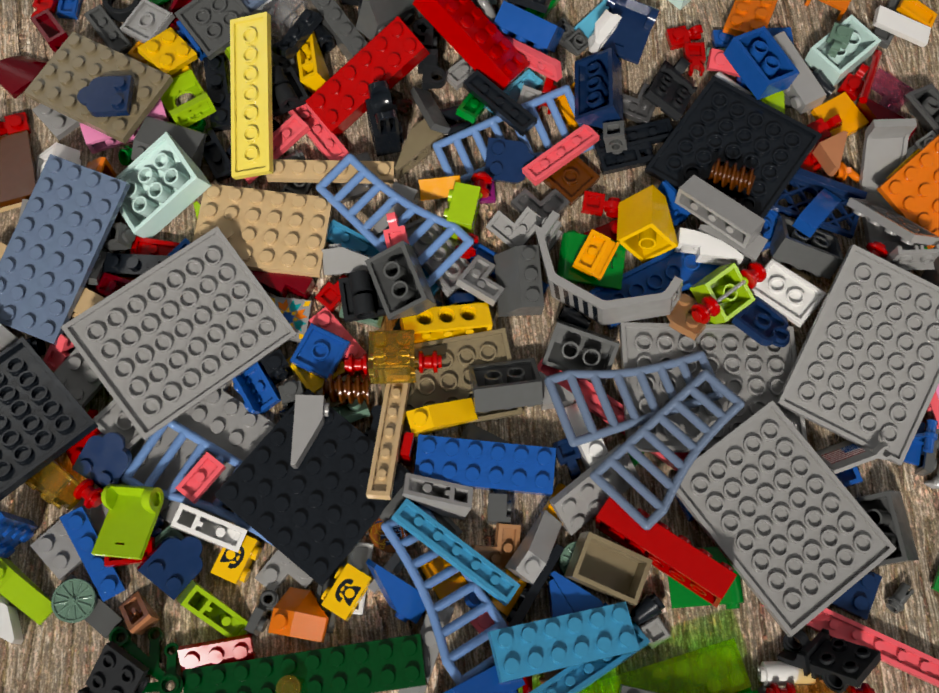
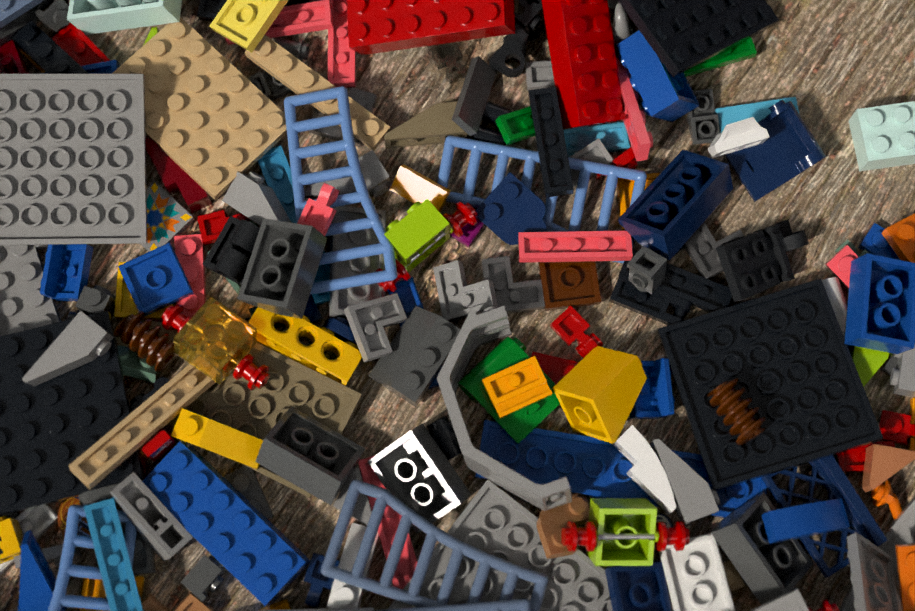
camera: 40 degrees right, 5 degrees up
(277, 366) = (103, 262): black brick -> none
(383, 119) = (411, 74): black brick -> none
(679, 35) = (829, 204): red plate -> none
(695, 54) = (826, 238): red plate -> none
(719, 211) = (688, 439): light grey brick -> none

